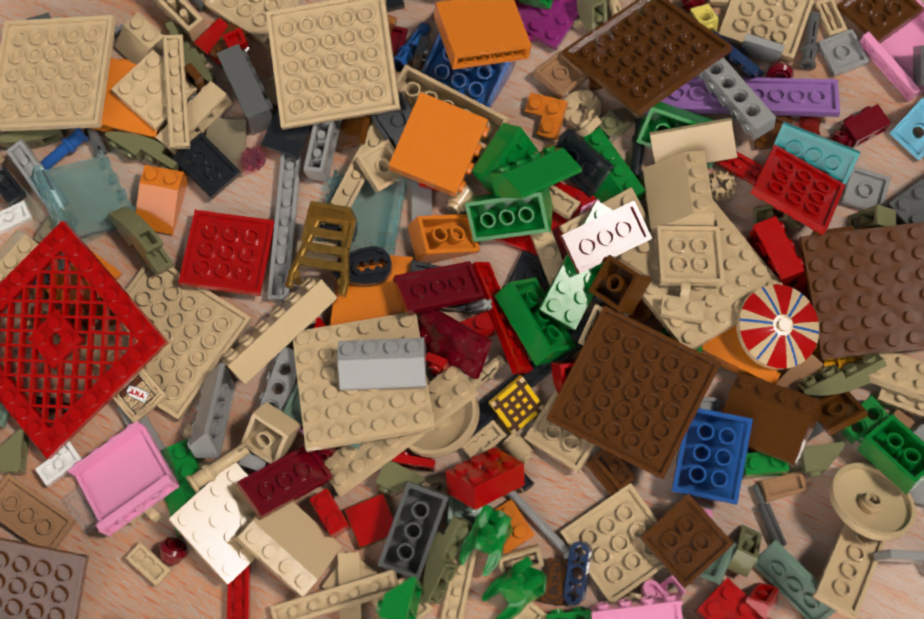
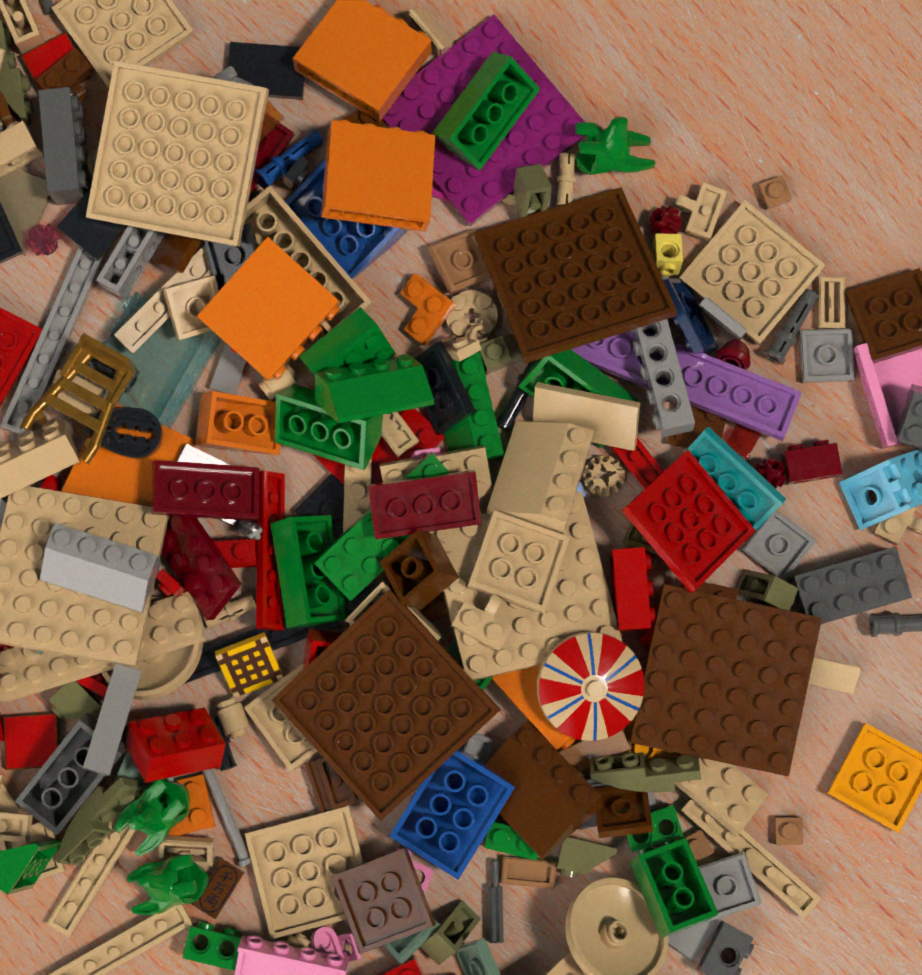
camera: 15 degrees right, 10 degrees up
(235, 37) = (70, 76): red plate -> none
(432, 474) = (112, 719): none -> light grey tile
(483, 440) = (197, 693): tan plate -> none
(581, 589) = (256, 884): dark blue beam -> none

